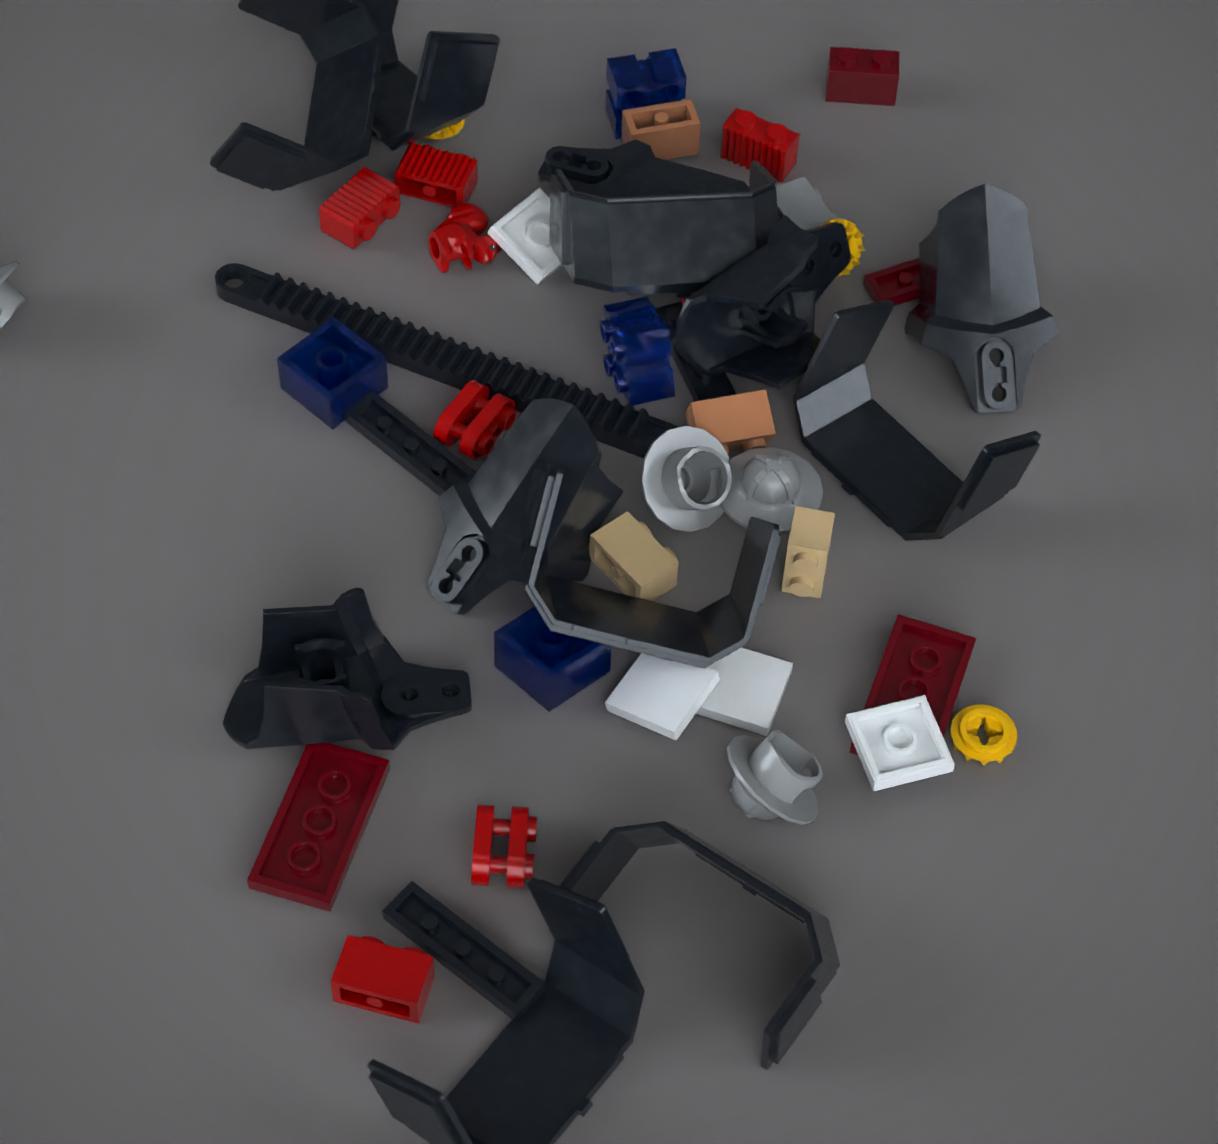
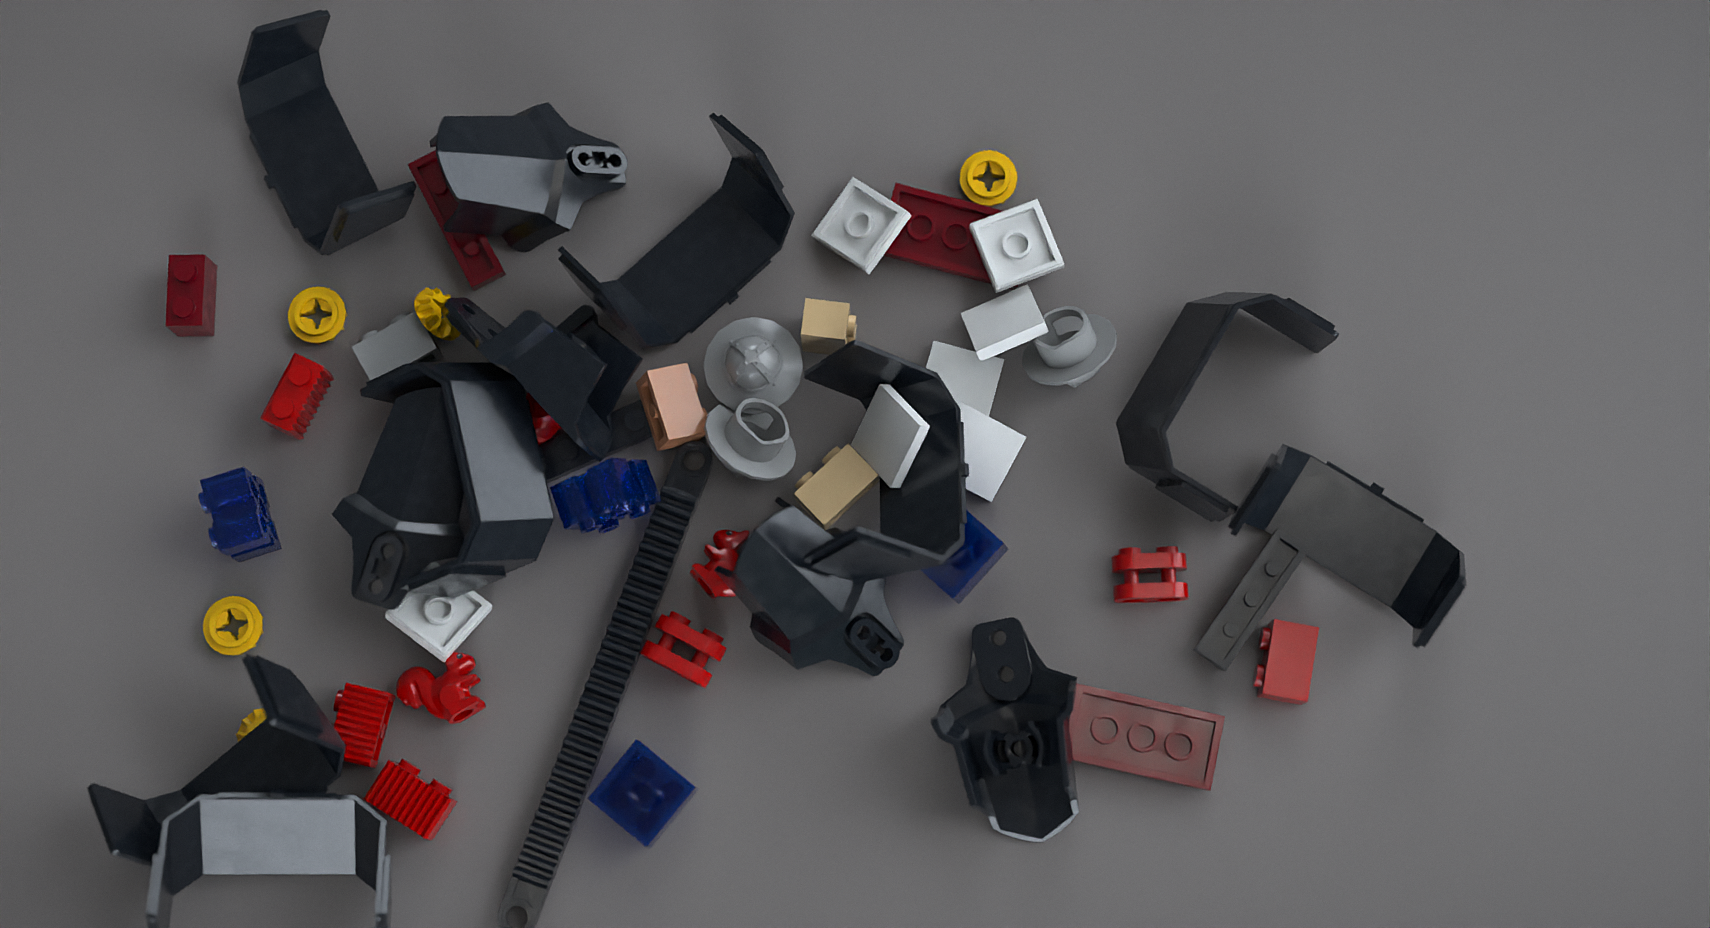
camera: 90 degrees left, 25 degrees up
(407, 443) = (719, 708): black plate -> none
(553, 90) = (219, 617): none -> yellow gear
(668, 128) = (291, 496): nougat brick -> none
(682, 596) = (890, 435): none -> white tile
(807, 718) = (1004, 322): none -> white tile
(854, 163) = (306, 304): none -> yellow gear
(926, 602) = (861, 225): none -> white tile
(1031, 161) = (306, 140): none -> black piece

